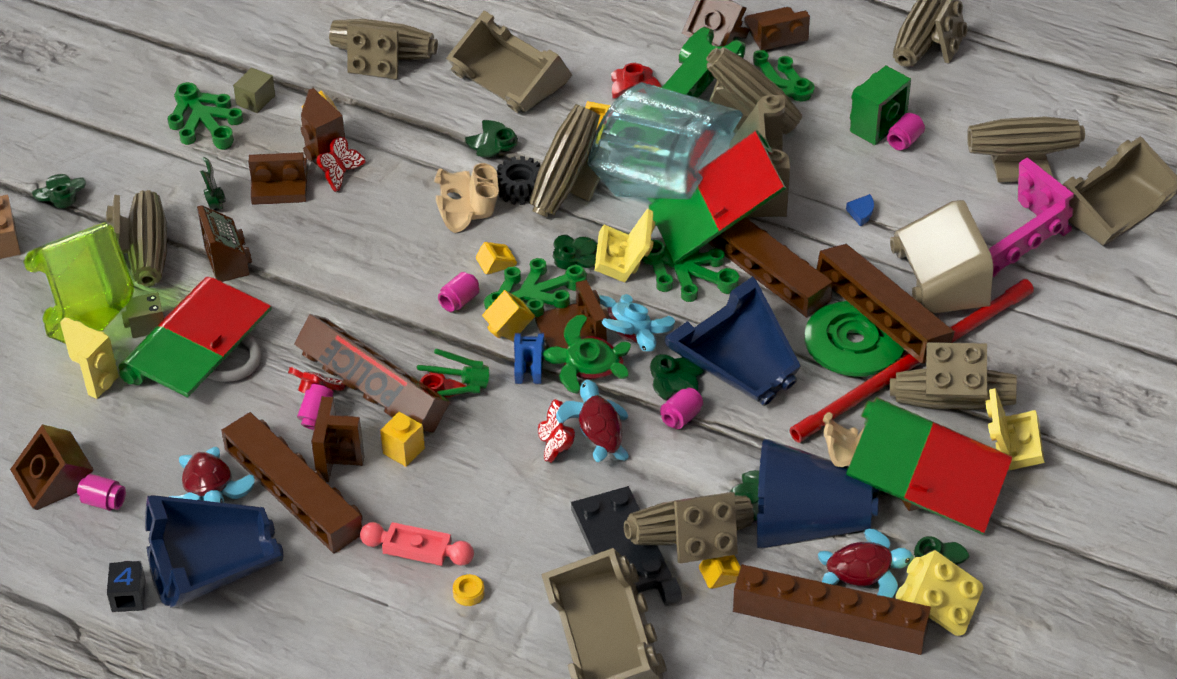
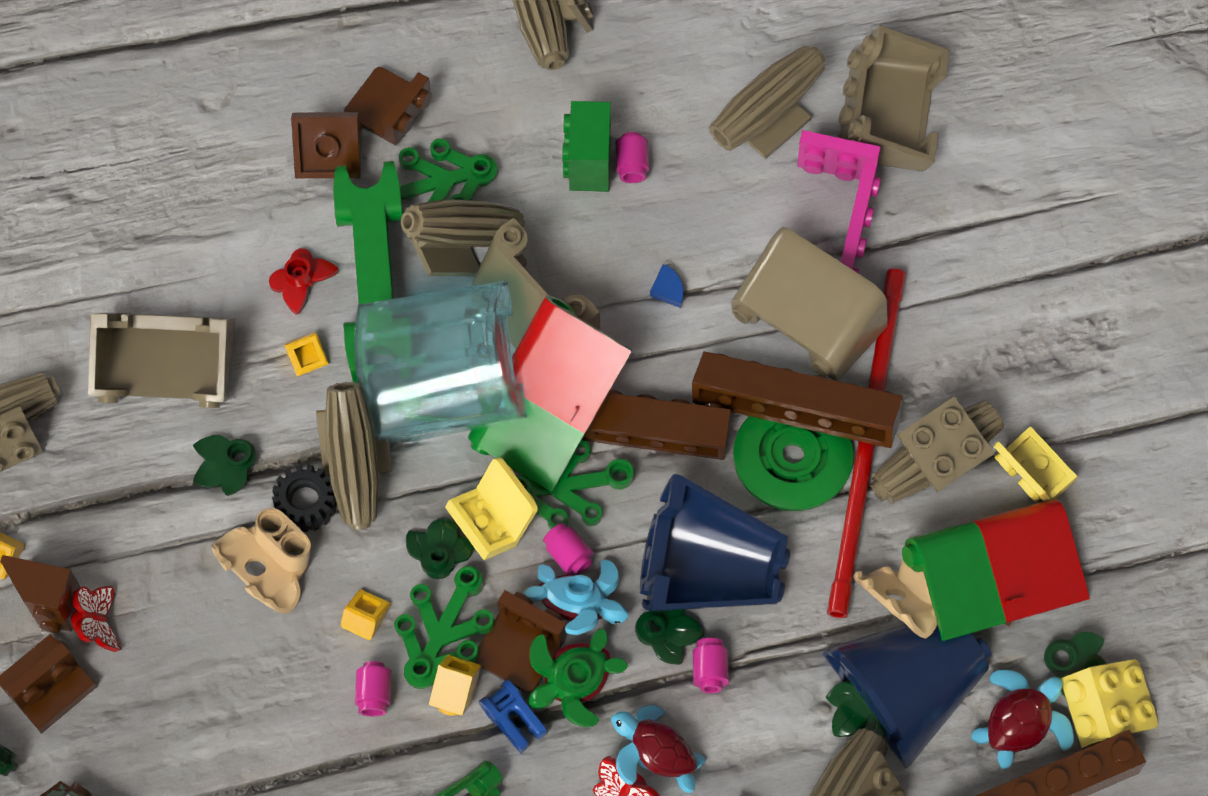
camera: 40 degrees left, 20 degrees up
(654, 295) = (568, 549): none -> dark pink brick

